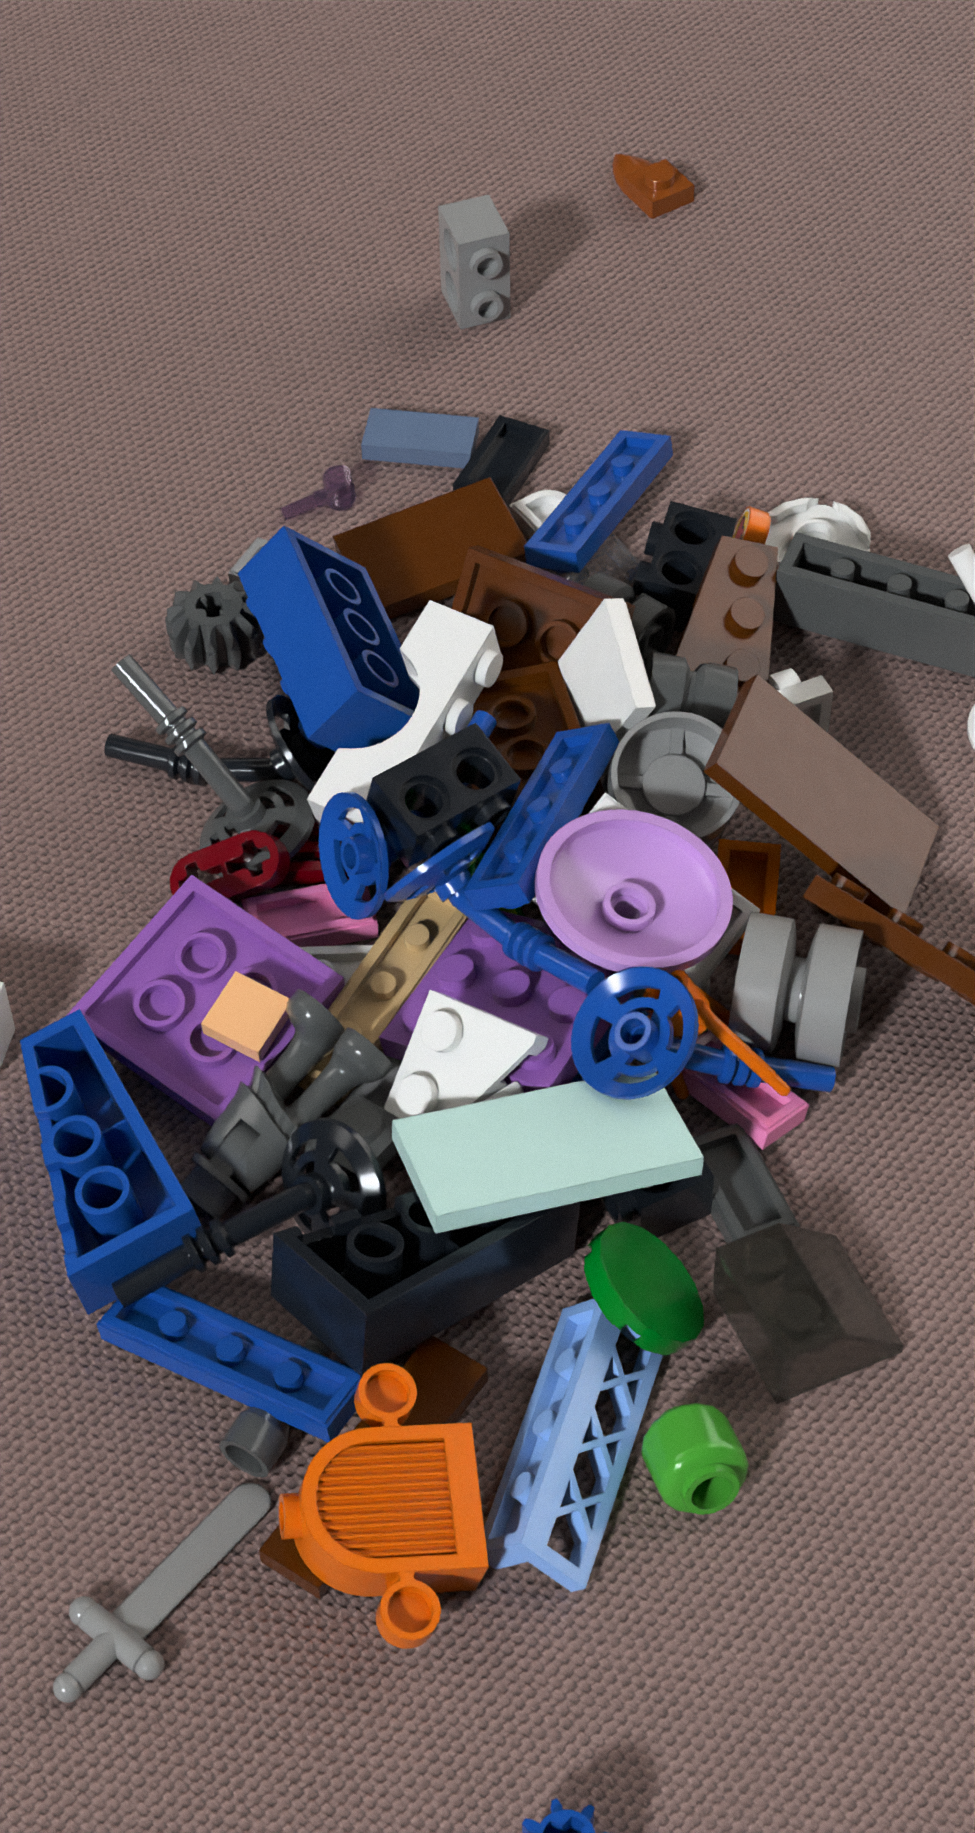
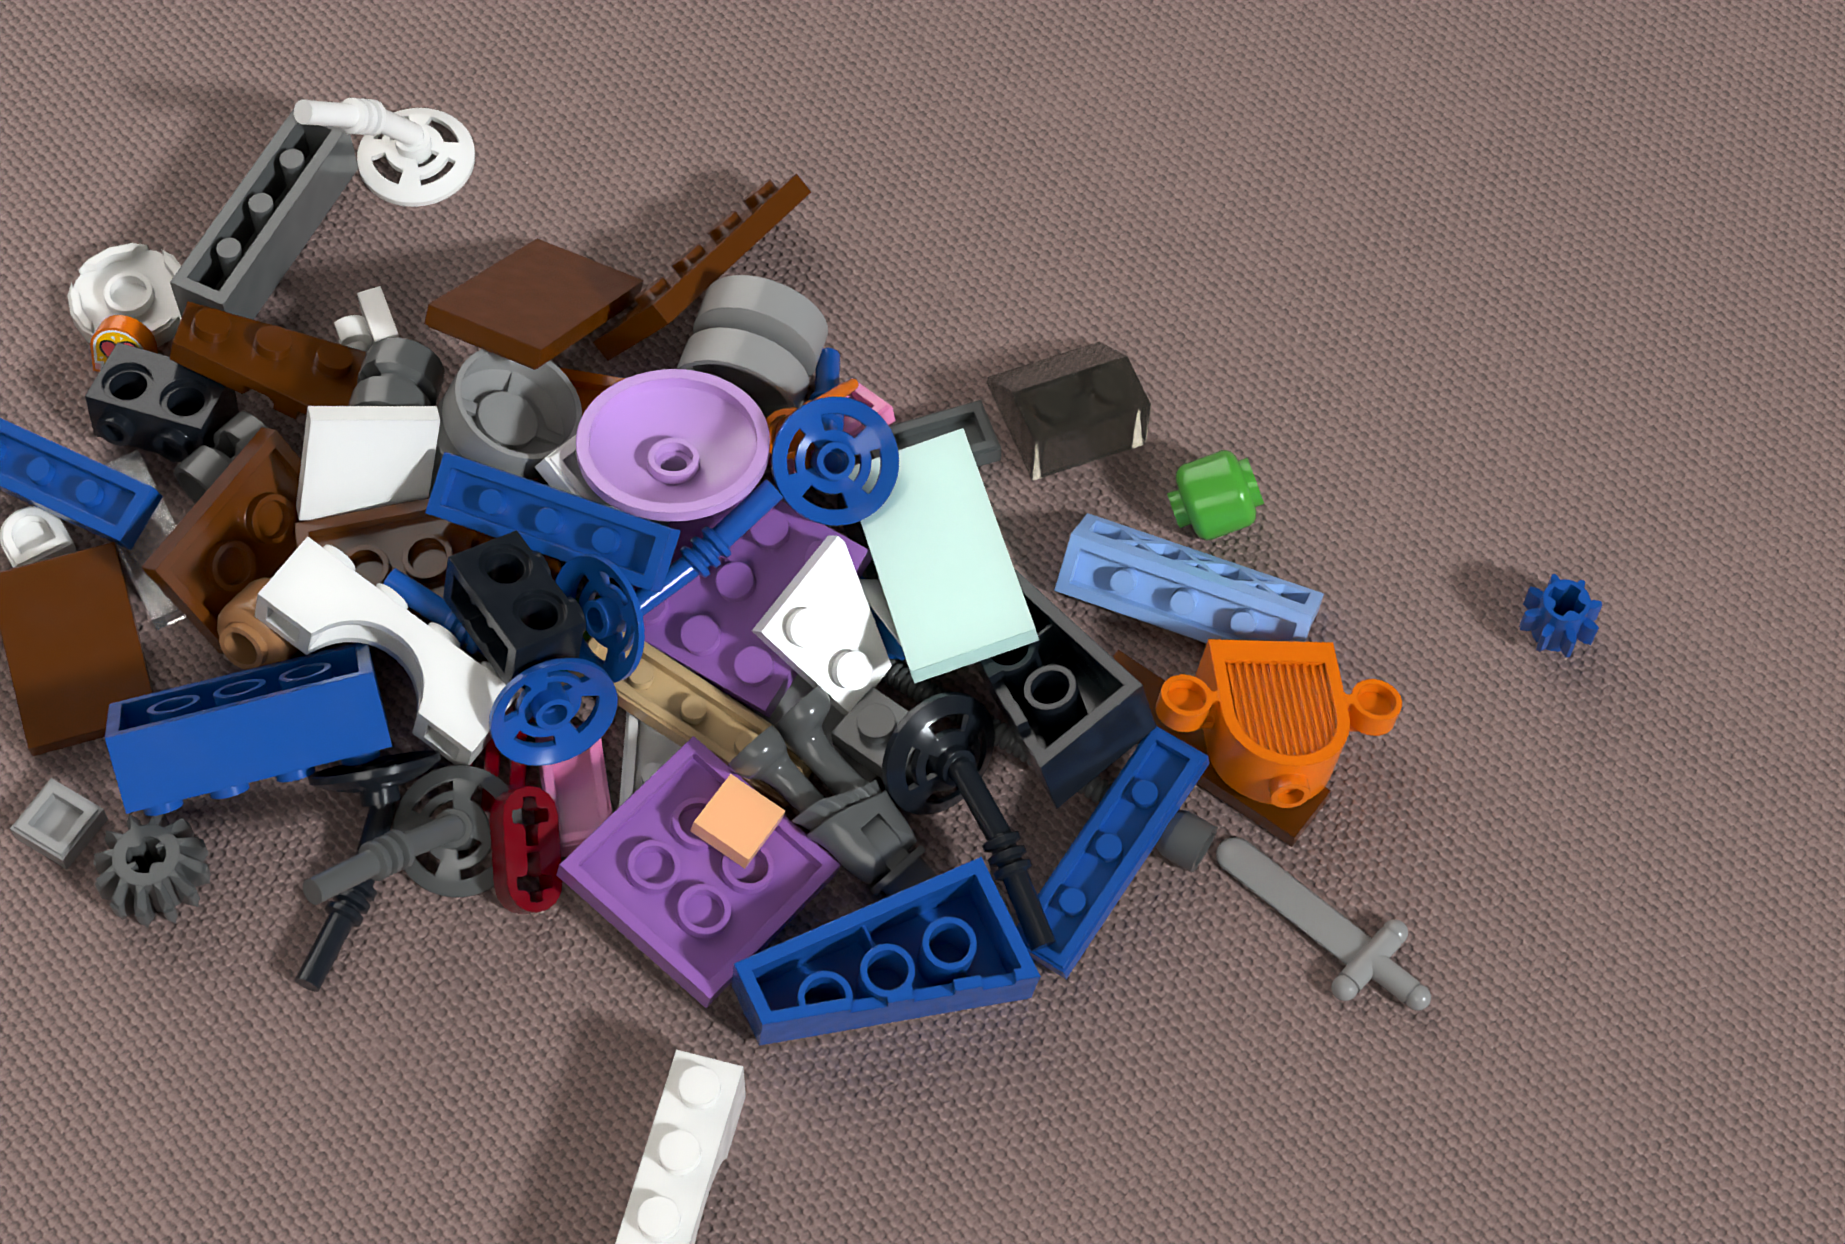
camera: 90 degrees left, 10 degrees up
(644, 1287) = (1059, 510): green tile -> none

